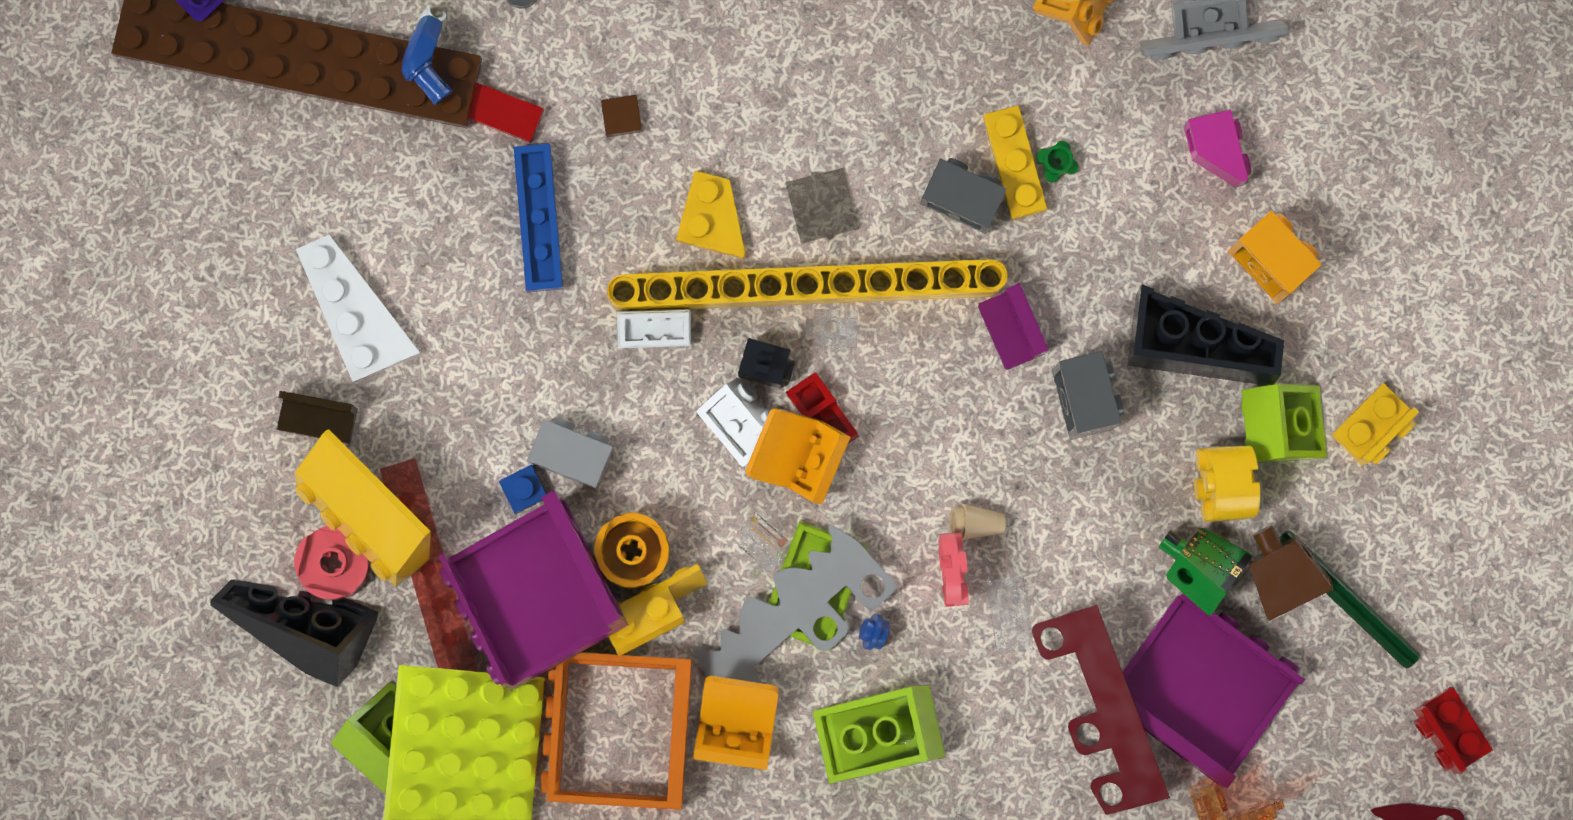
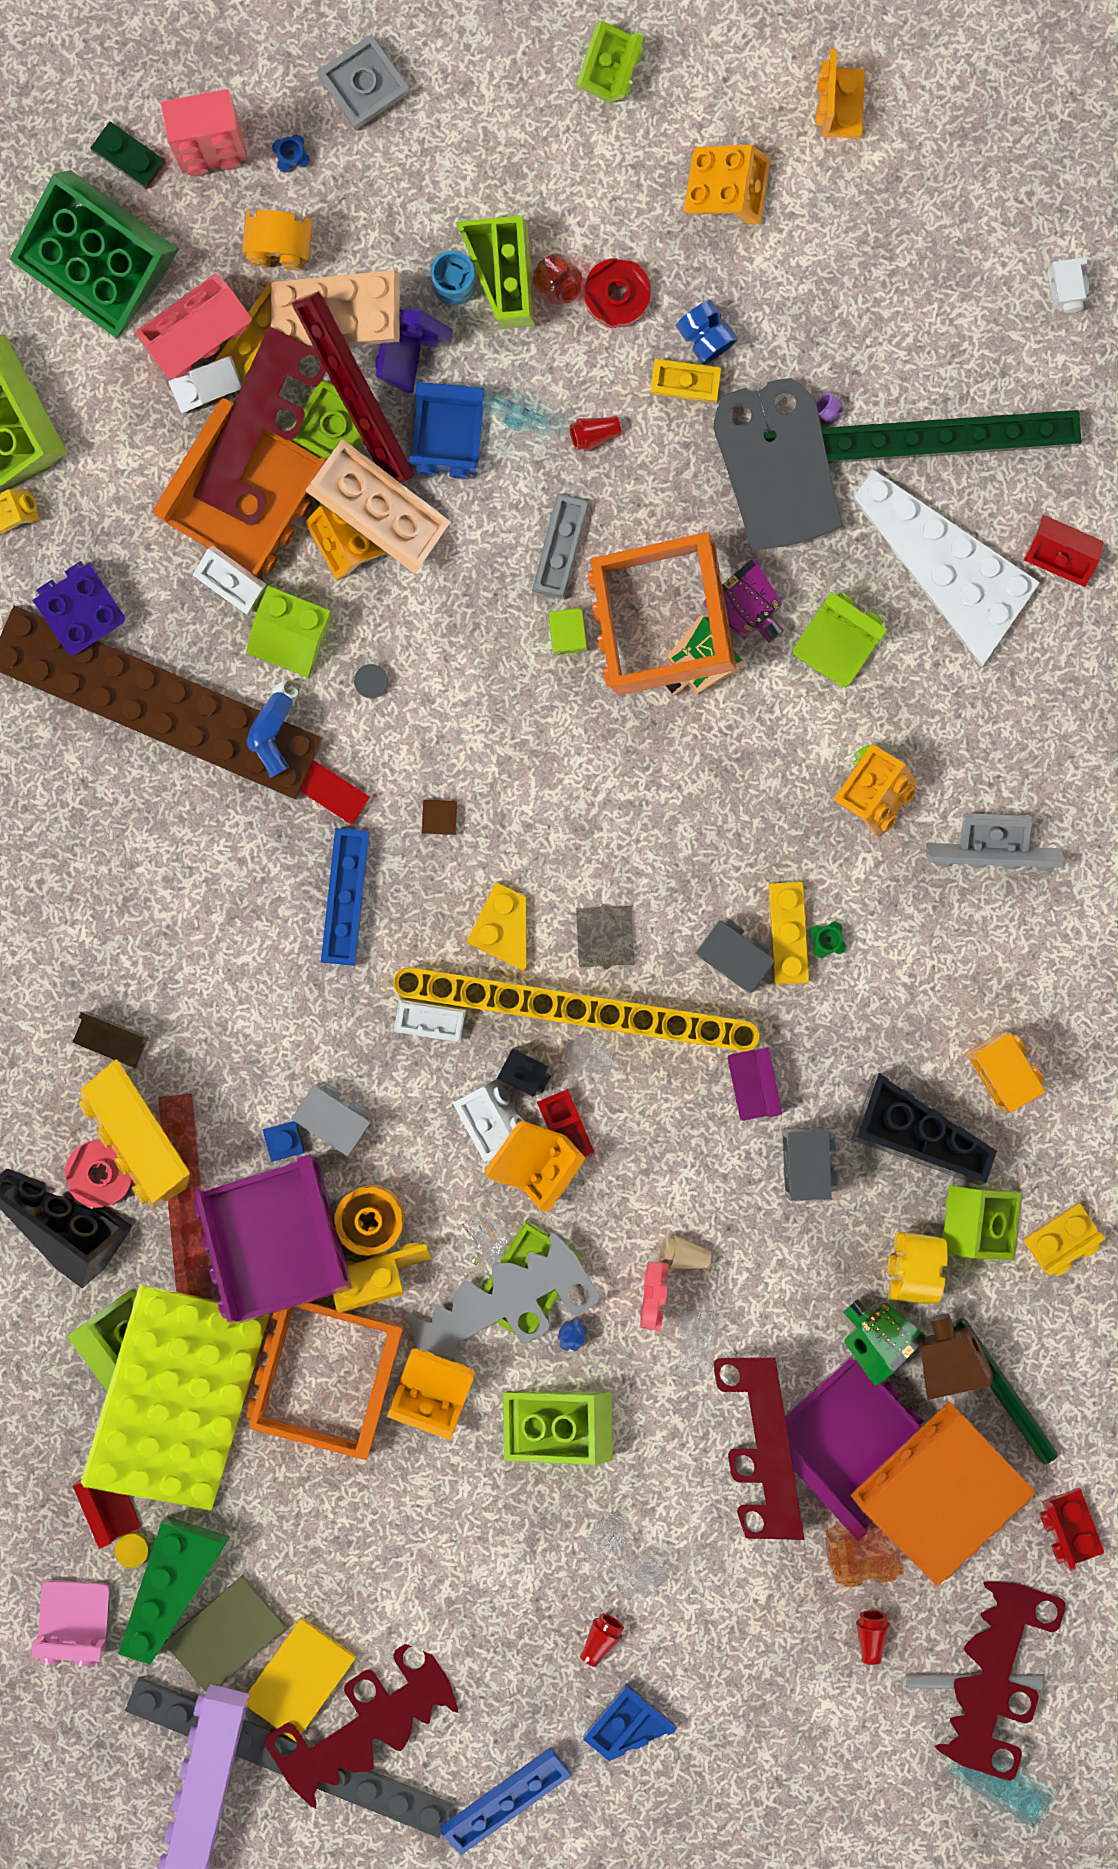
camera: 15 degrees right, 5 degrees up
(357, 318) = (164, 957): white wing -> none
(1216, 146) = (975, 957): dark pink slope -> none
(1308, 717) = (943, 1494): none -> orange panel

